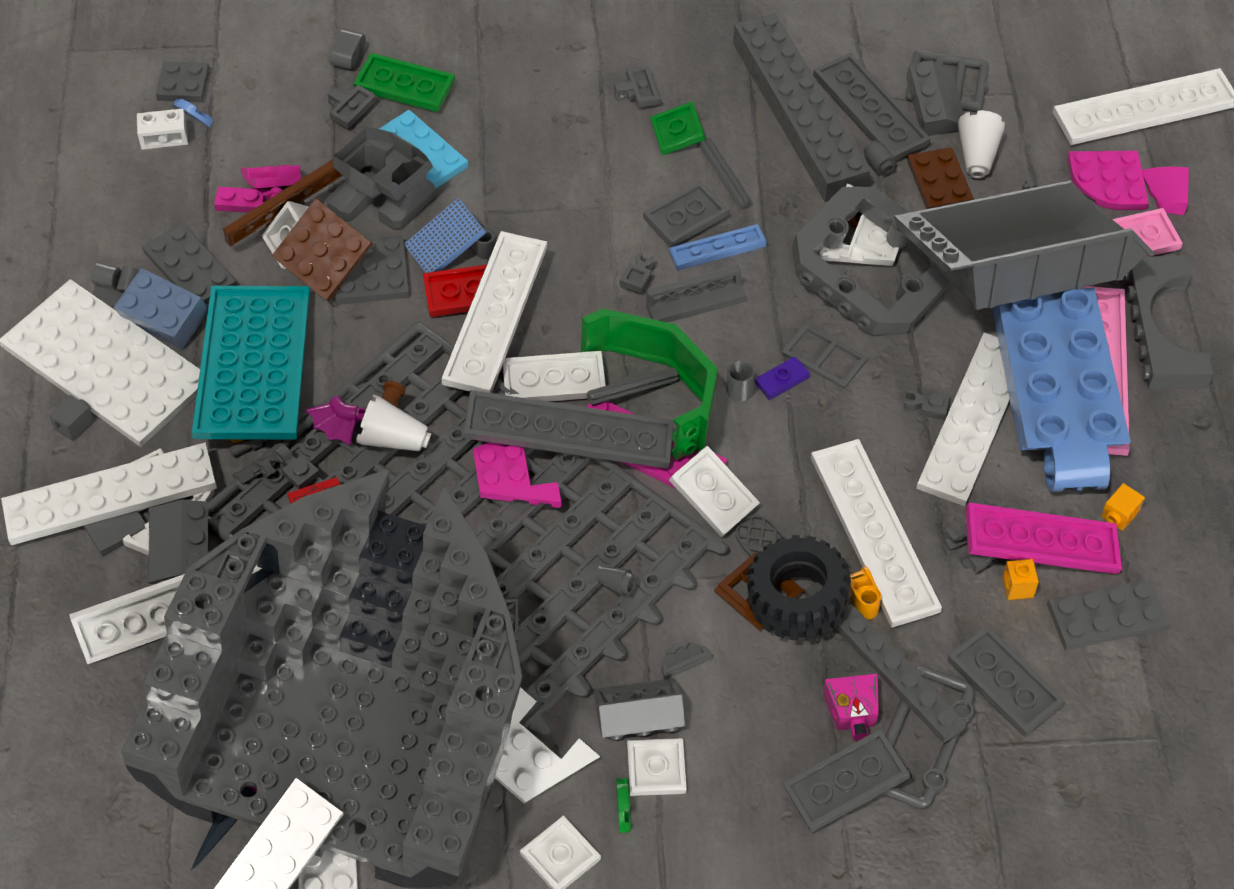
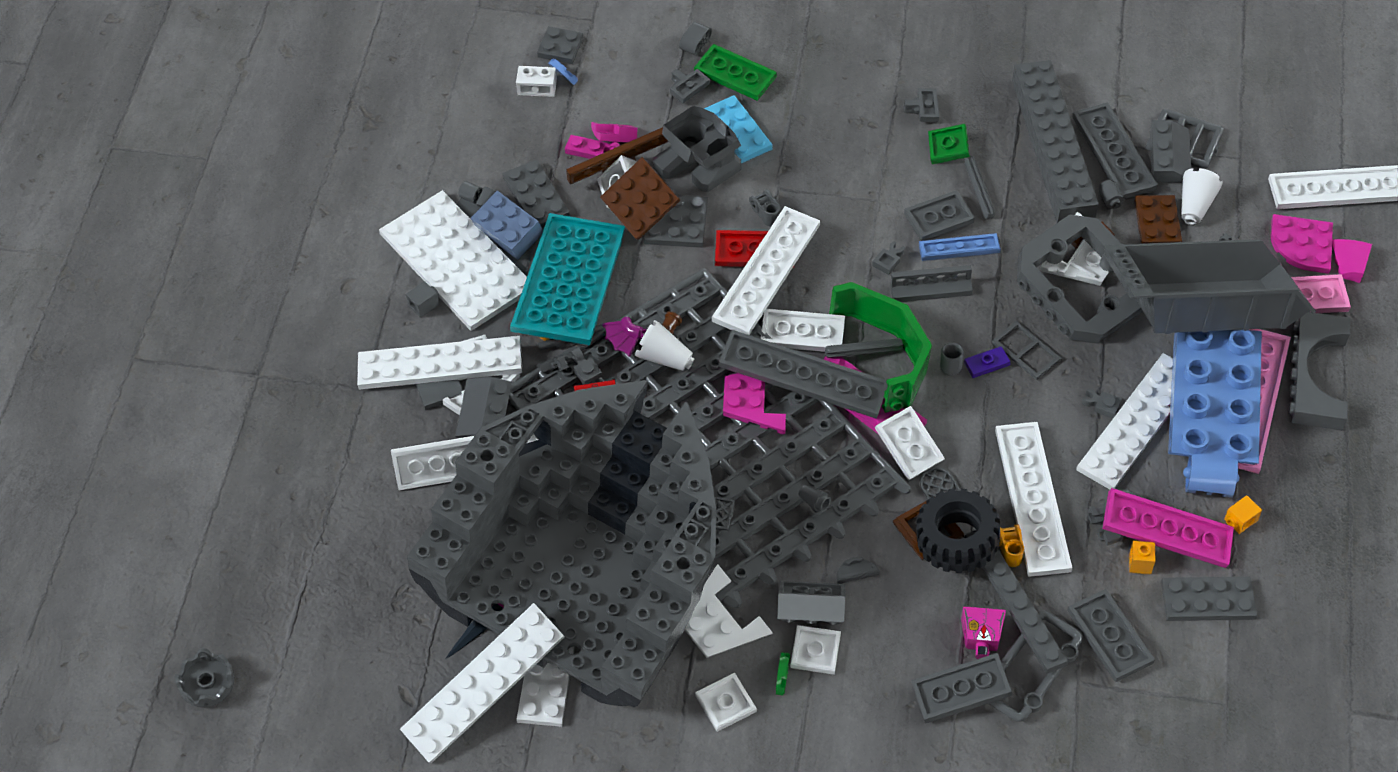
camera: 15 degrees right, 0 degrees up
(445, 237) = (740, 204): medium blue tile -> none

